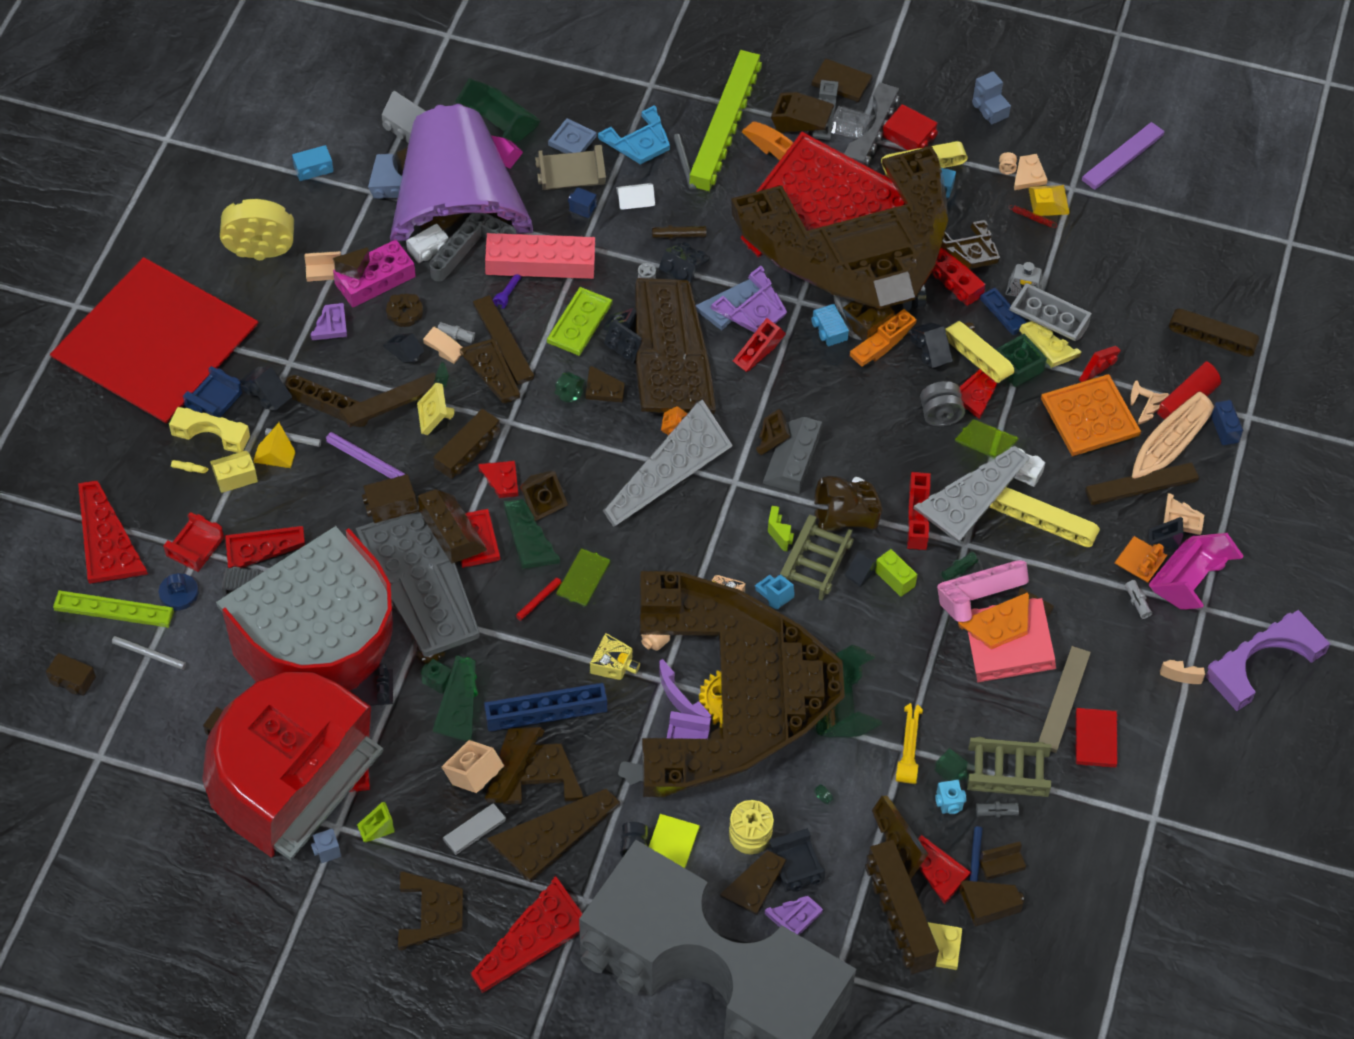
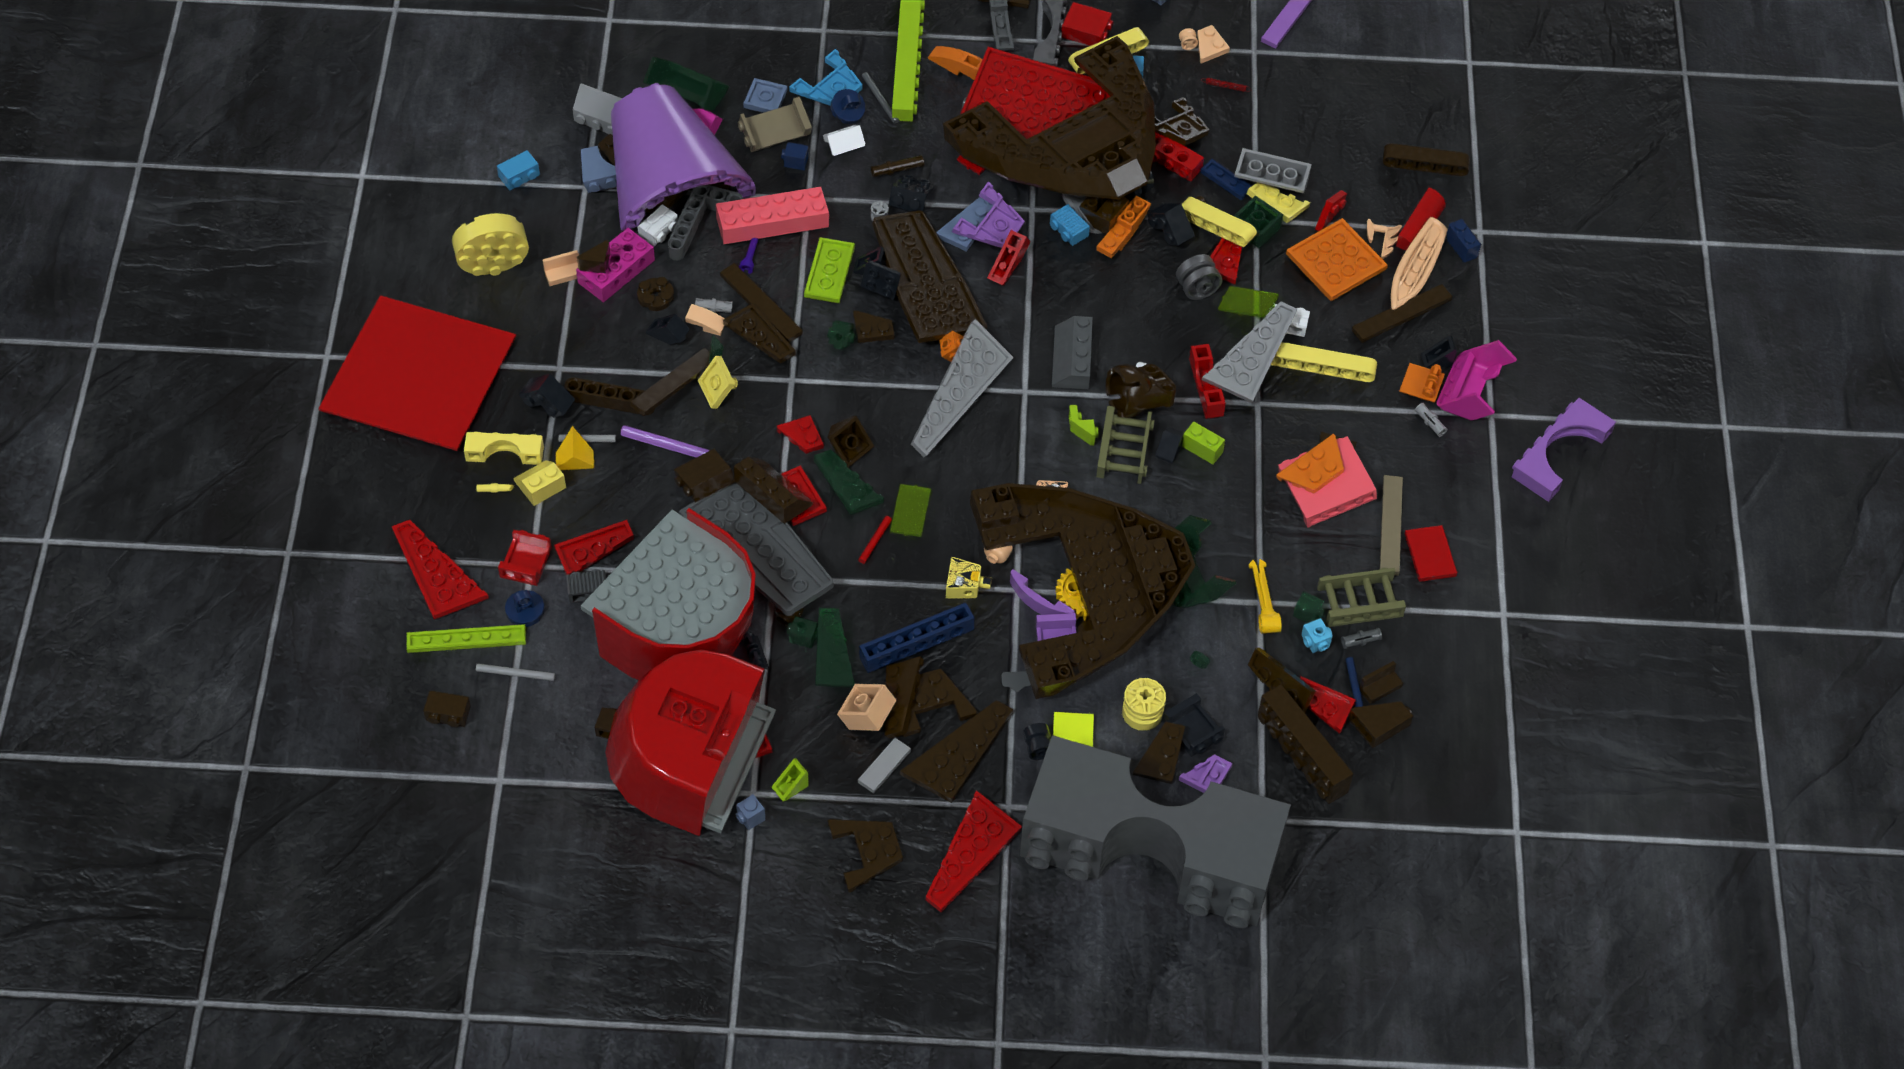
camera: 15 degrees left, 0 degrees up
(214, 394) = (496, 412): dark blue panel -> none
(330, 323) = (588, 321): medium lavender wing -> none
(467, 444) = (760, 408): dark brown brick -> none
(648, 163) = (847, 106): none -> dark blue tile
(773, 431) = (1047, 336): dark brown wing -> none
(776, 591) = (1098, 483): dark azure brick -> none
(800, 113) = (979, 29): dark brown slope -> none
(851, 122) = (1029, 29): clear slope -> none
(948, 942) = (1356, 763): light yellow wing -> none
(958, 592) = (1269, 448): bright pink beam -> none
(959, 566) = (1259, 425): clear green pin -> none
(1021, 275) = (1235, 142): light grey torso -> none
(1049, 200) = (1236, 66): yellow slope -> none
(1175, 671) = (1487, 478): light nougat slope -> none
(1192, 518) = (1440, 331): light nougat wing -> none

